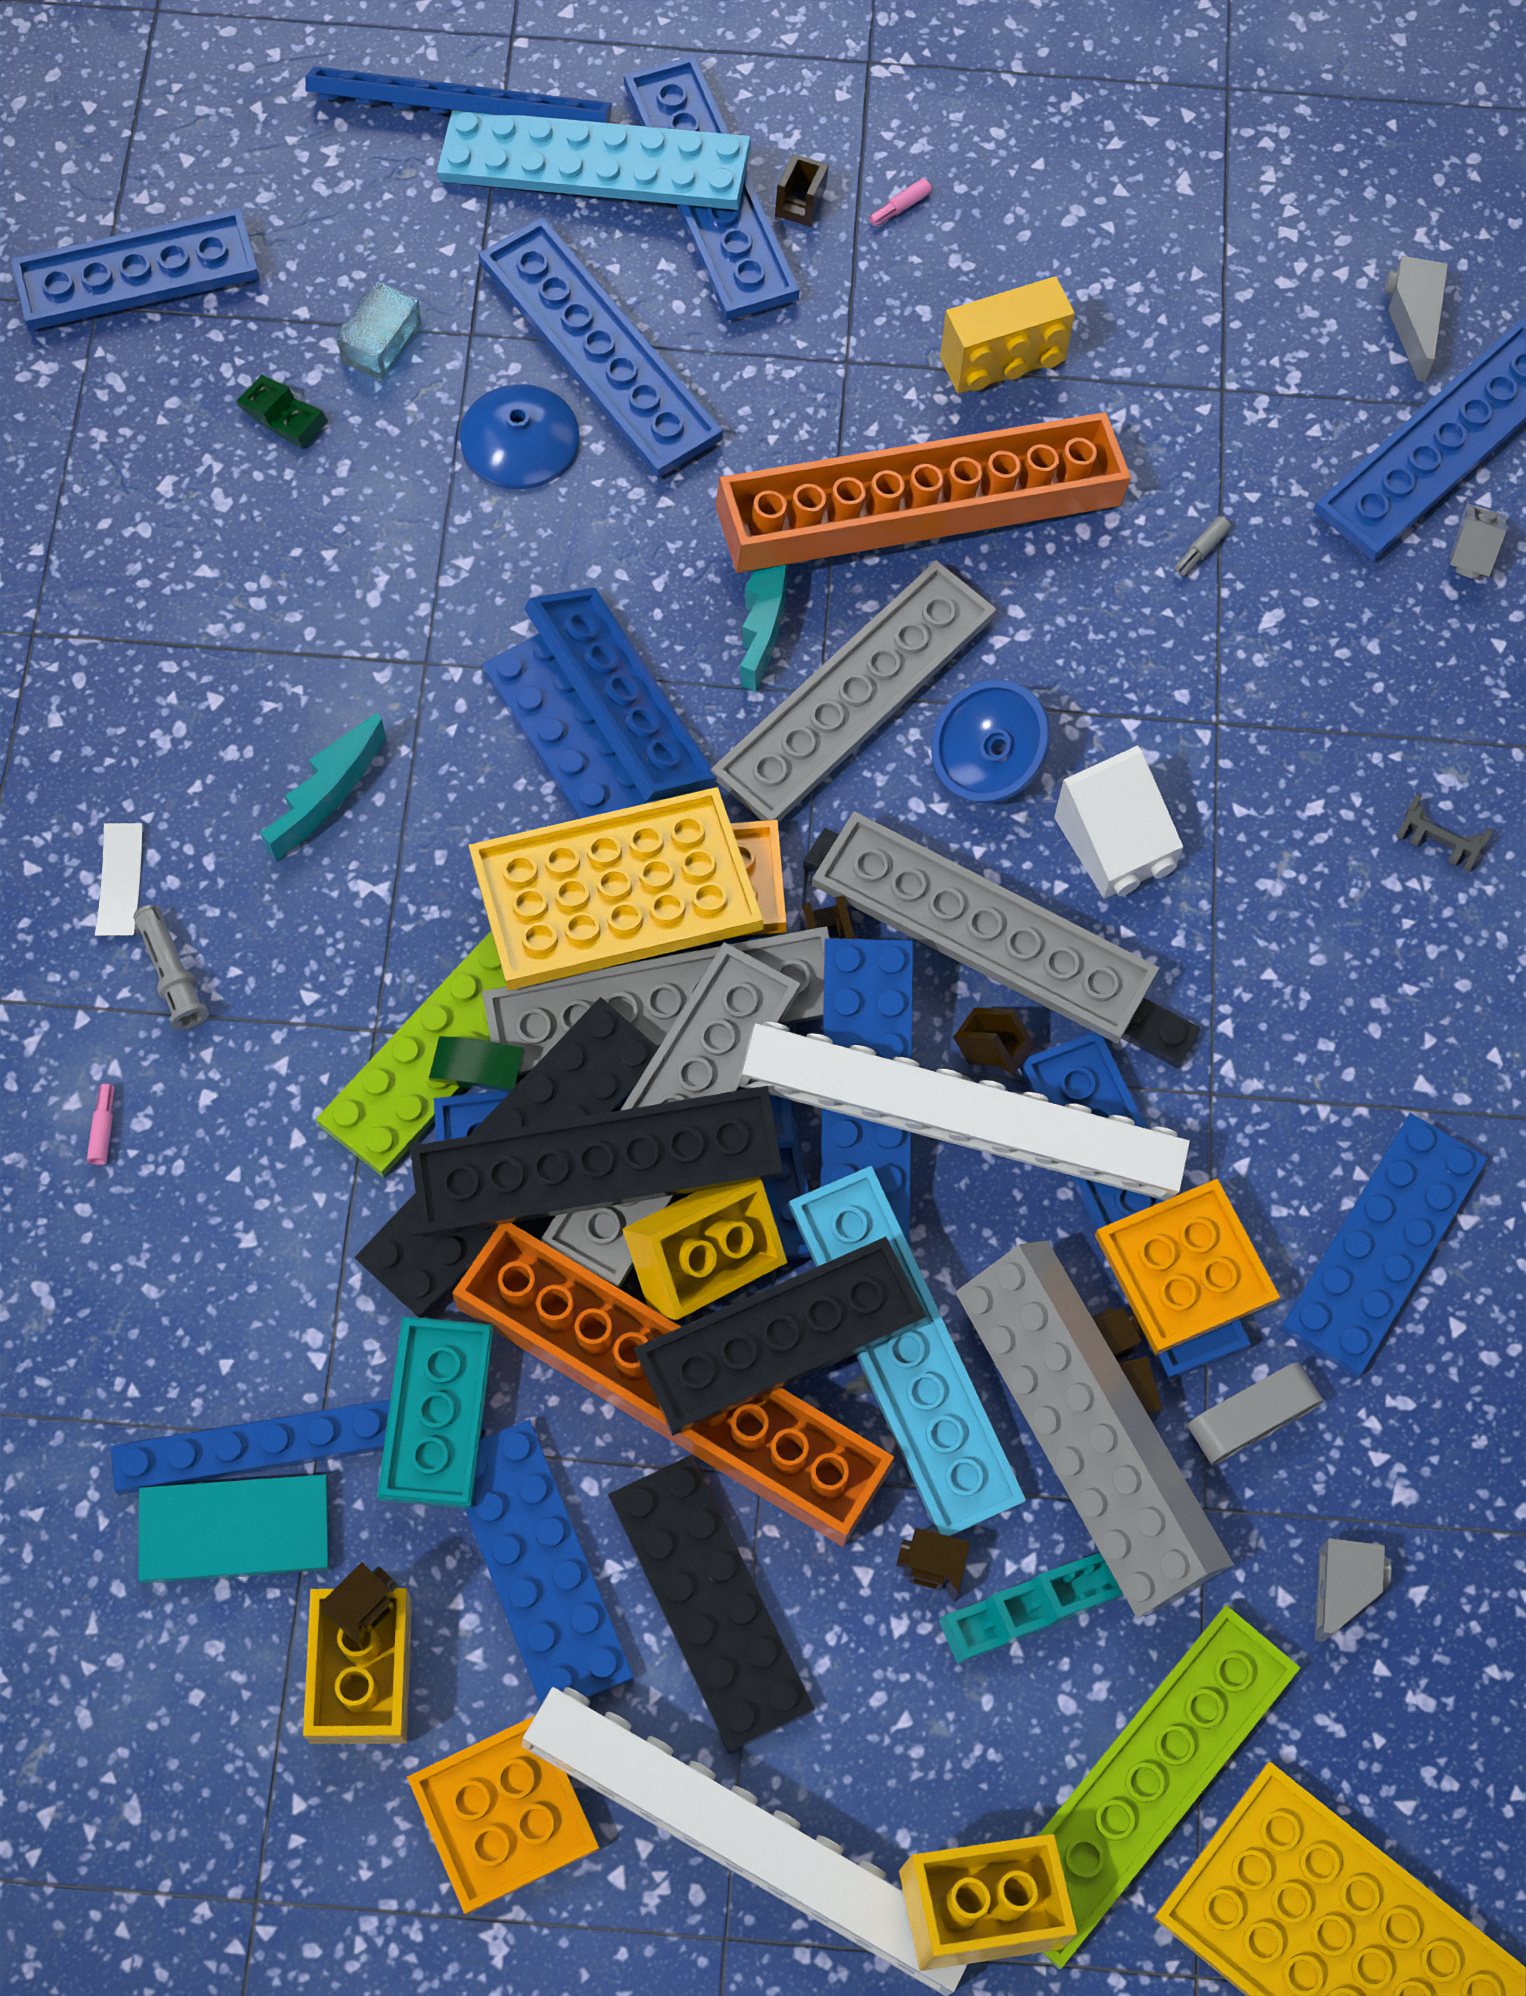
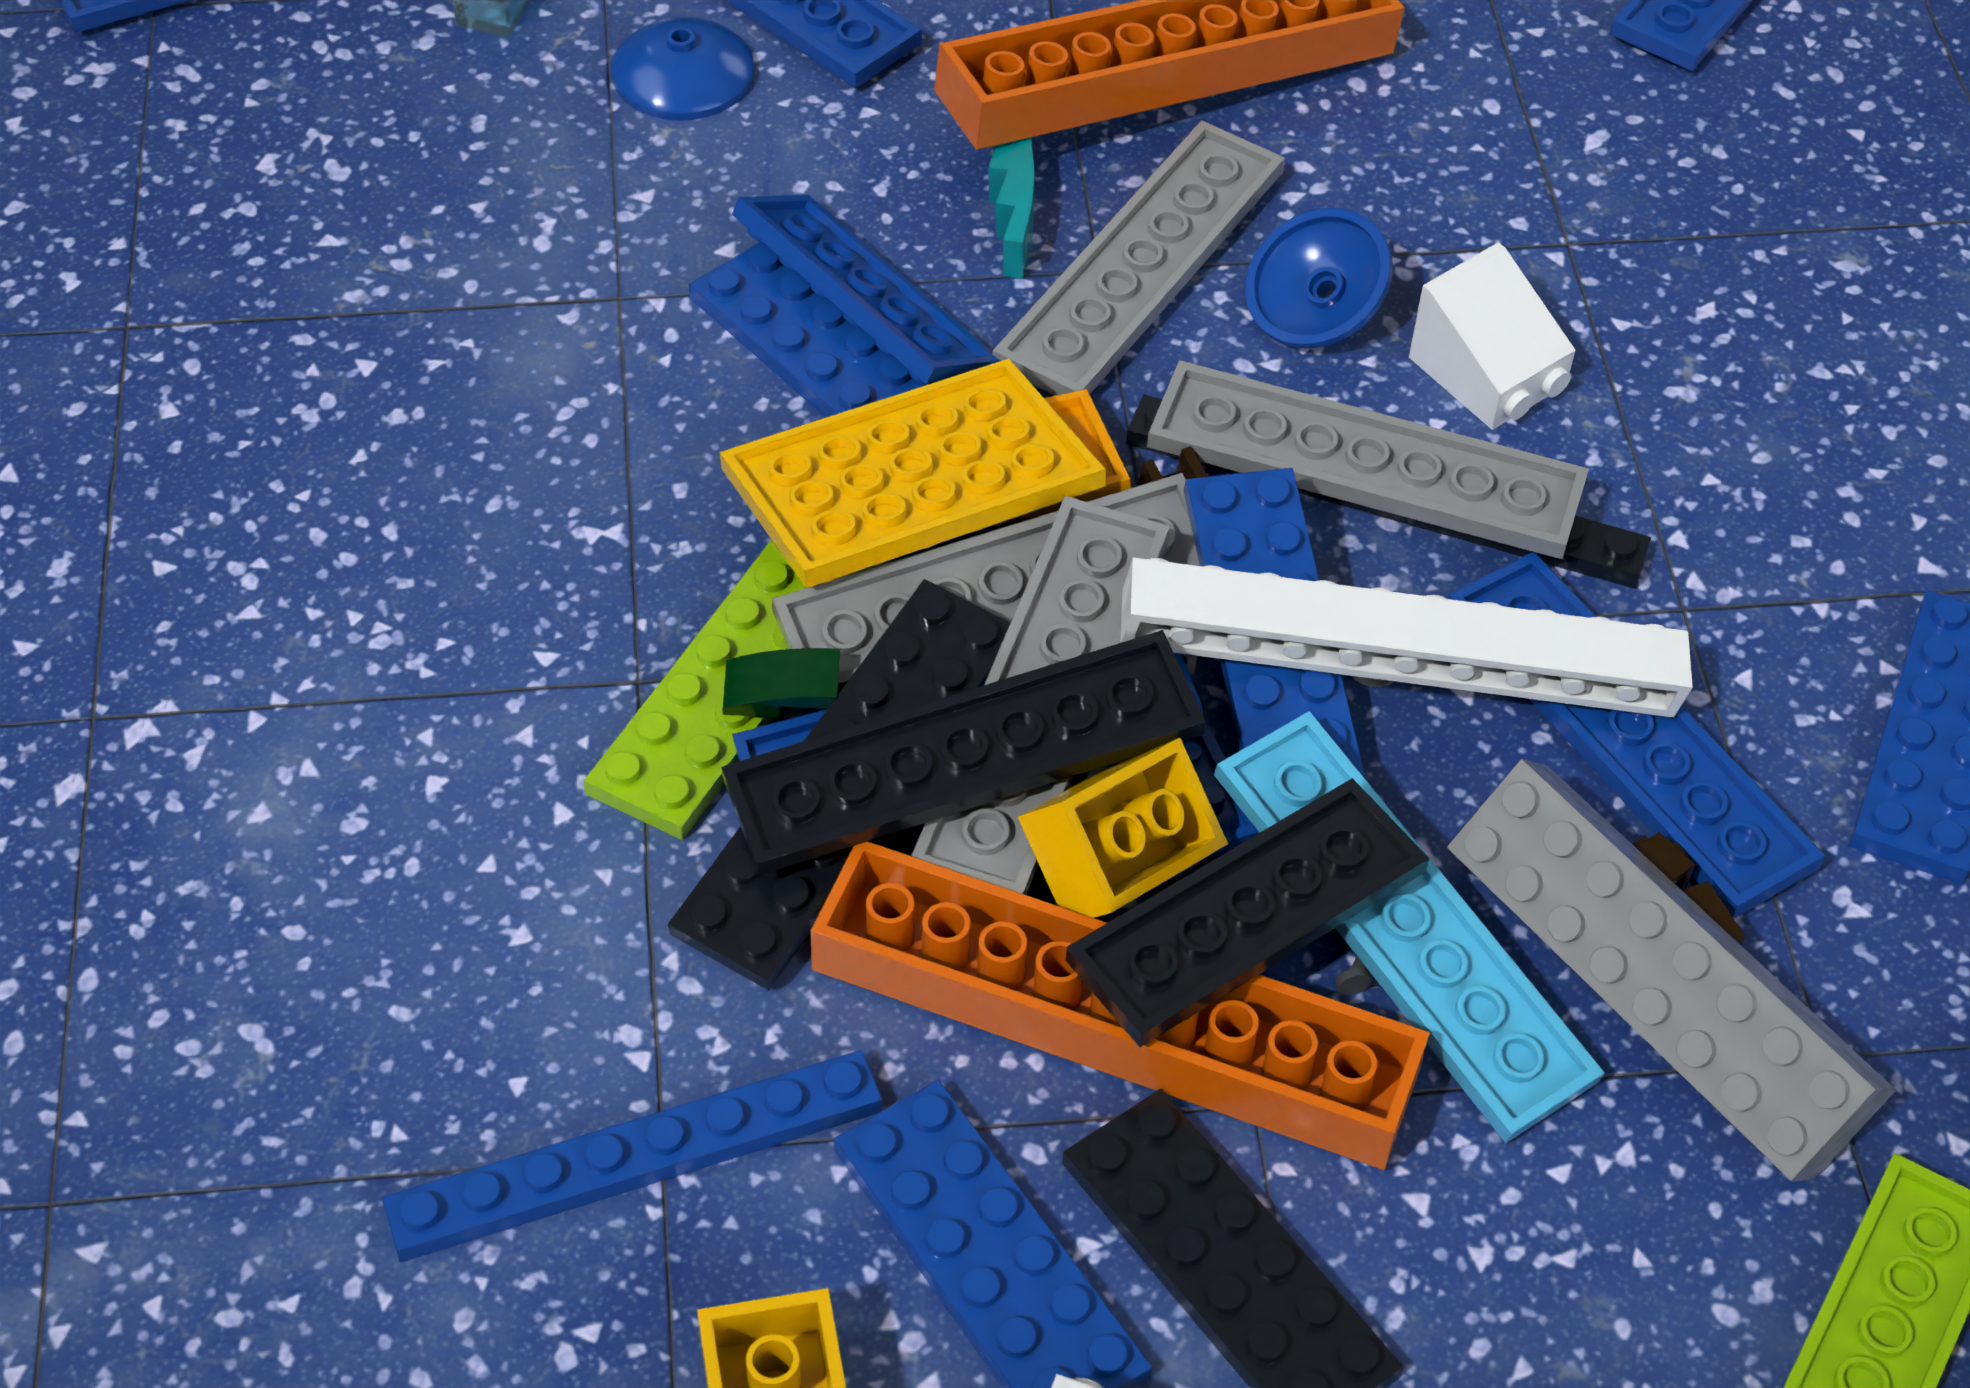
camera: 10 degrees left, 15 degrees down
(101, 1126) = (303, 832): bright pink pin -> none
(119, 879) = (280, 561): white sticker -> none
(174, 982) = (372, 657): light grey pin -> none
(233, 1529) = (567, 1276): teal tile -> none
(280, 412) = (389, 74): dark green slope -> none
(334, 776) = (530, 420): teal slope -> none
(361, 1601) = (772, 1305): dark brown window -> none
(436, 1413) = (816, 1086): teal tile -> none
(934, 1560) = (1509, 1161): dark brown window -> none
(994, 1039) = (1414, 567): dark brown window -> none
(1030, 1607) = (1650, 1198): teal slope -> none
(1186, 1266) = (1723, 777): light orange plate -> none
(1204, 544) = (1499, 77): light grey pin -> none
(1255, 1413) = (1854, 933): light grey beam -> none
(1467, 846) = (1893, 322): dark grey piece -> none
(1478, 541) = (1803, 34): light grey slope -> none

